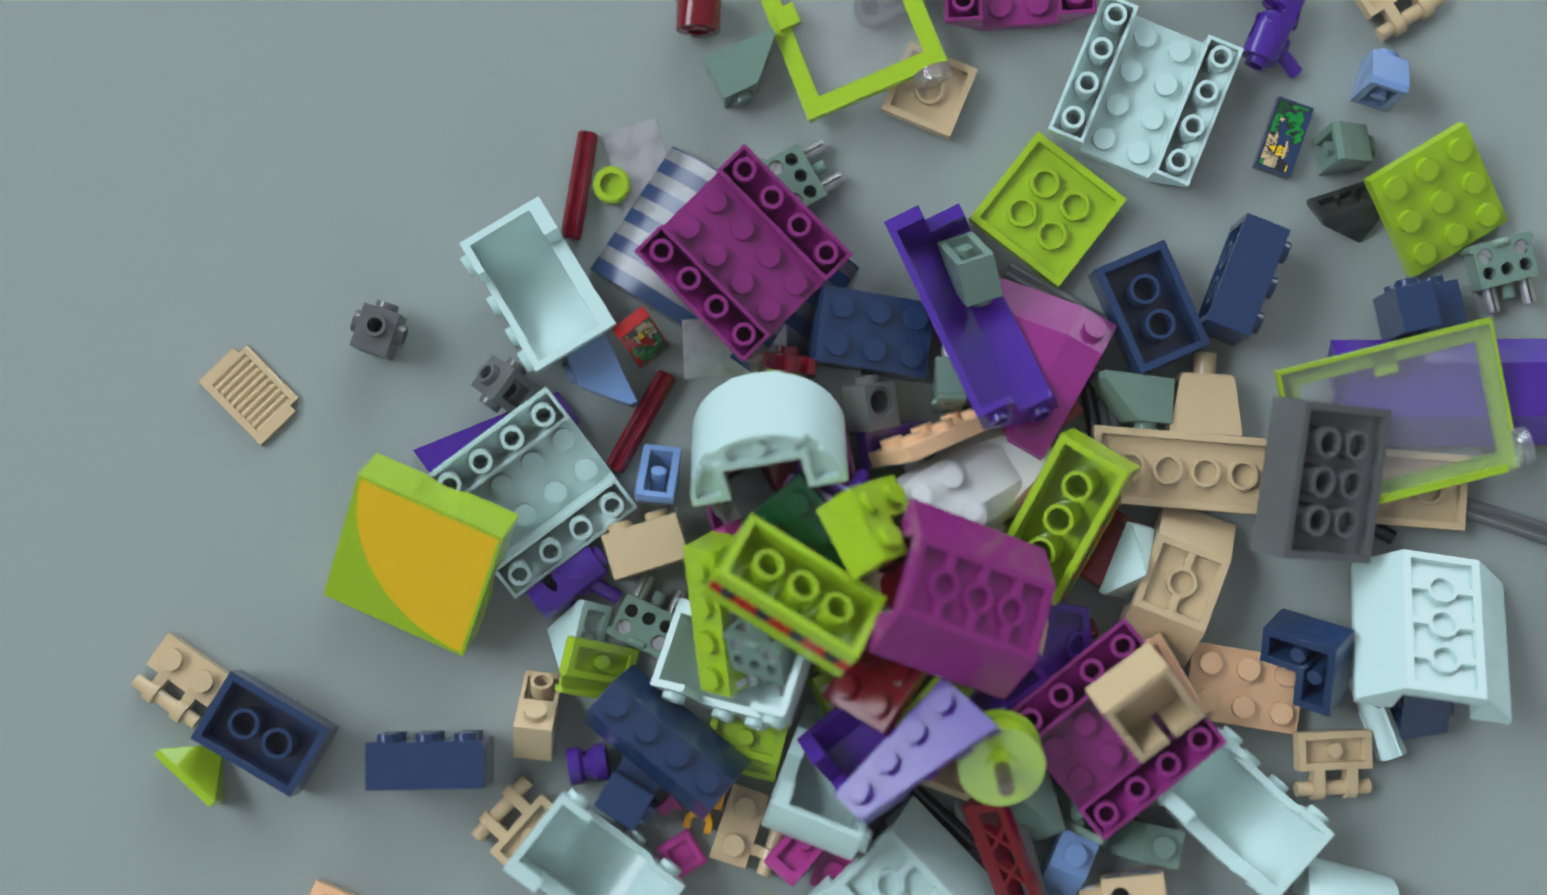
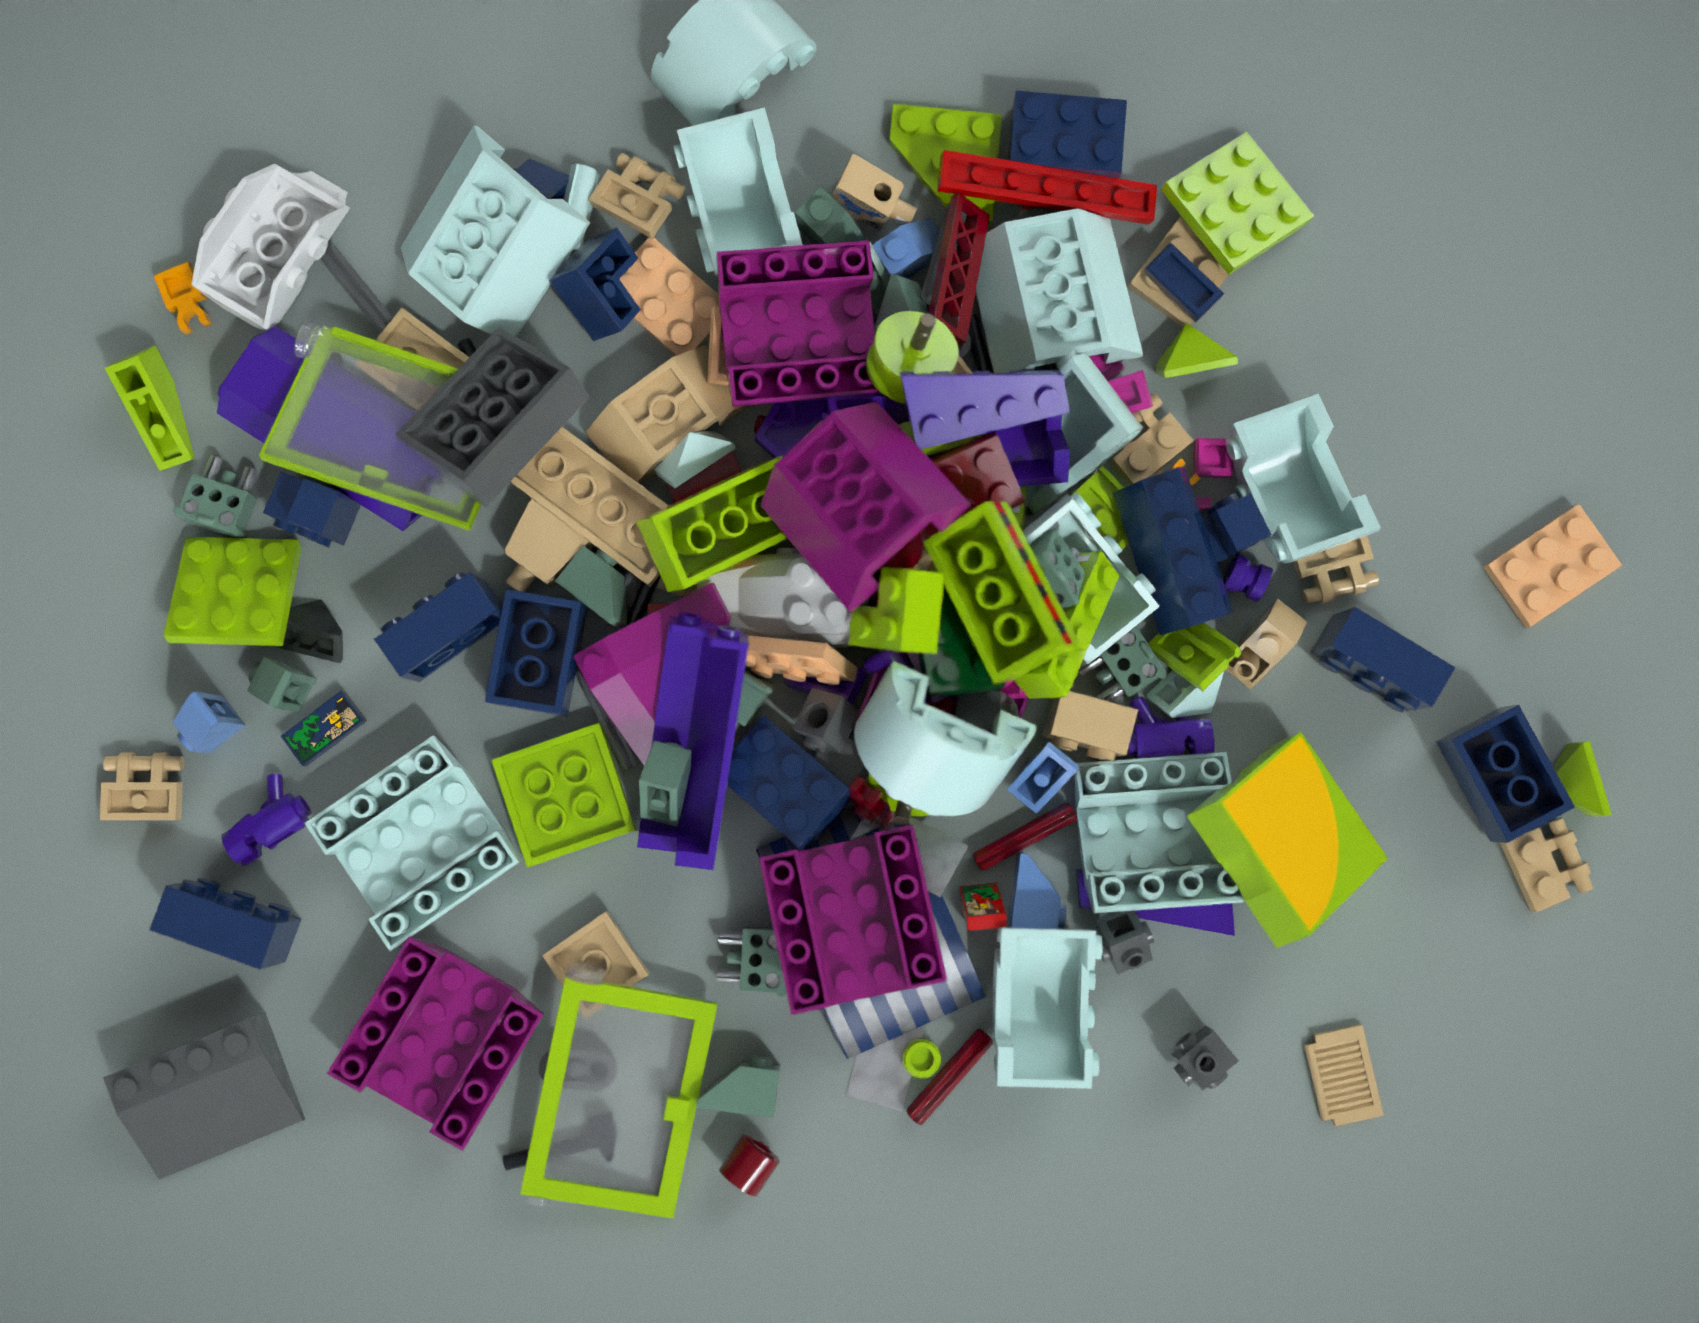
camera: 150 degrees left, 0 degrees up
(1137, 691) = (769, 339): tan piece -> none

